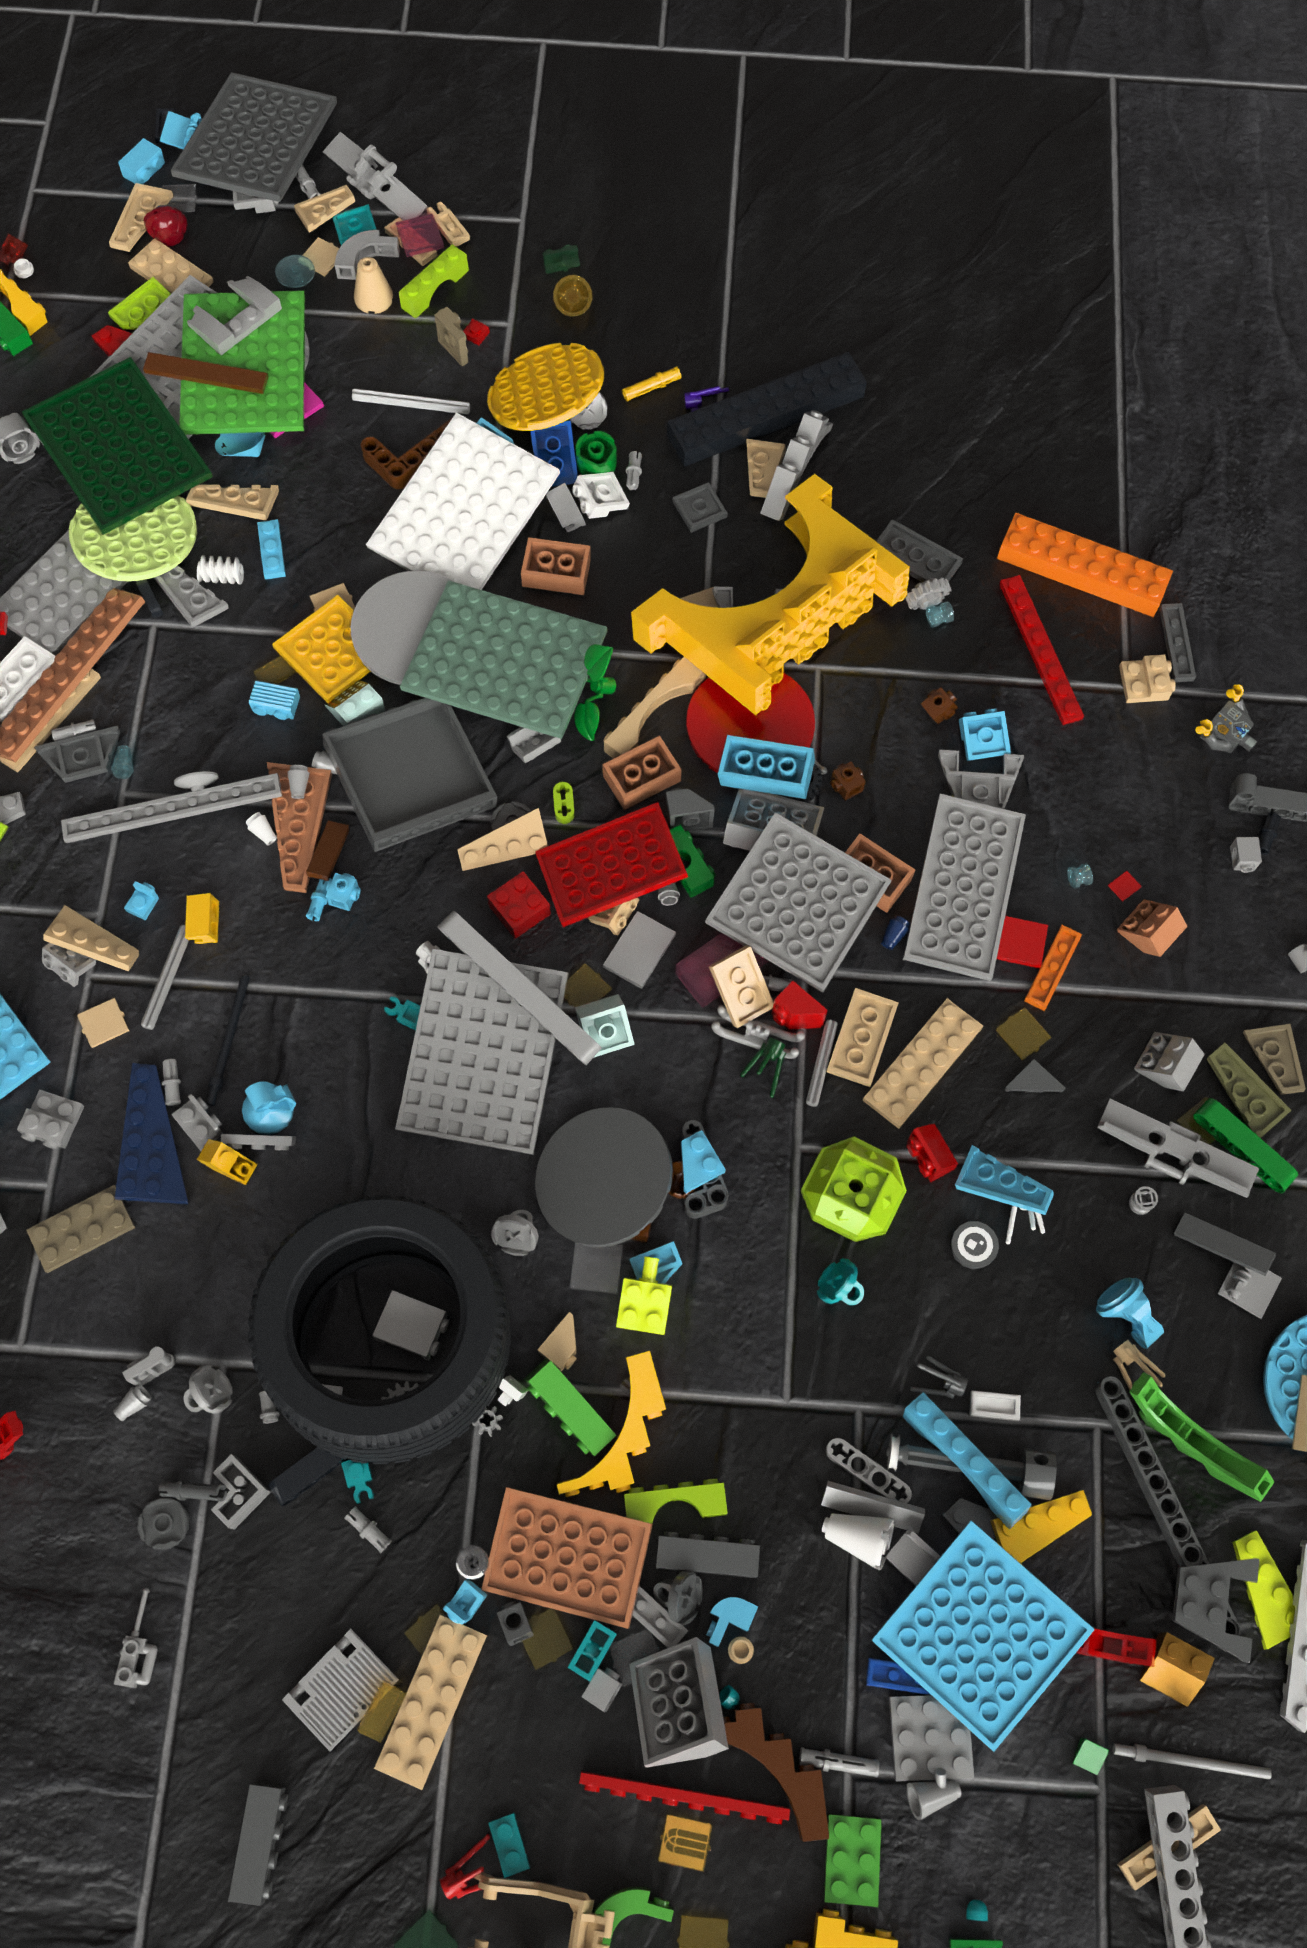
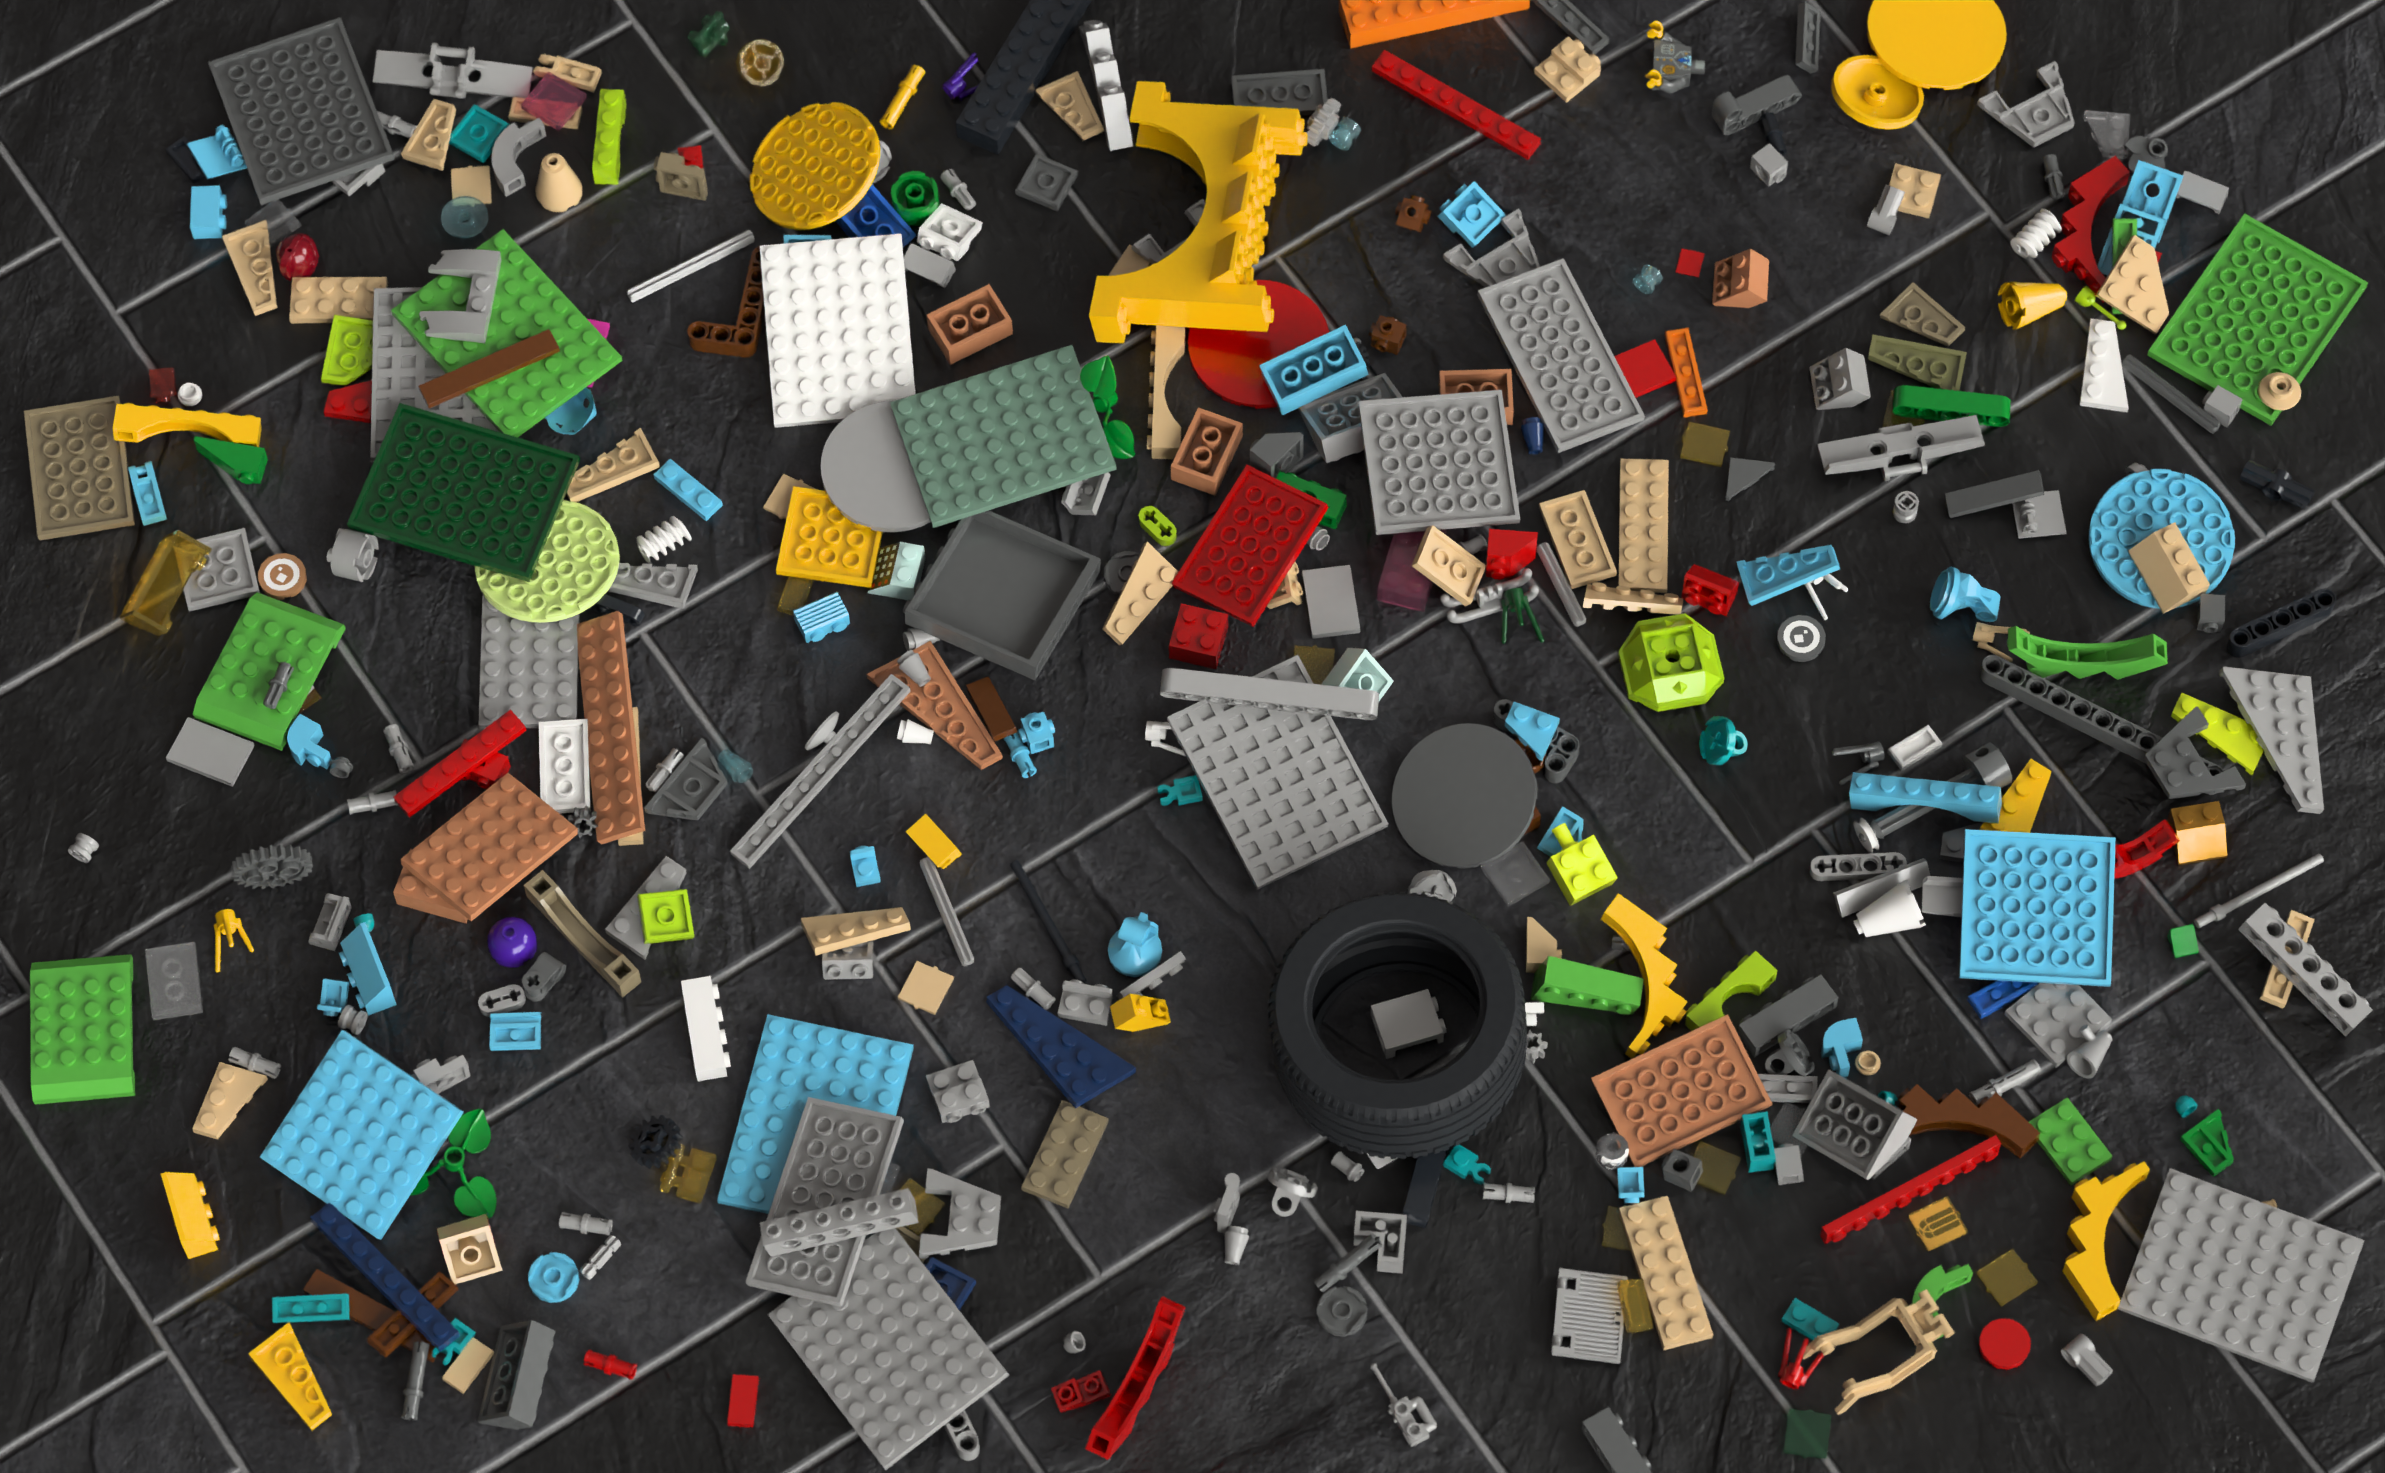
camera: 35 degrees left, 5 degrees down
(863, 1115) = (1631, 600): none -> tan wing

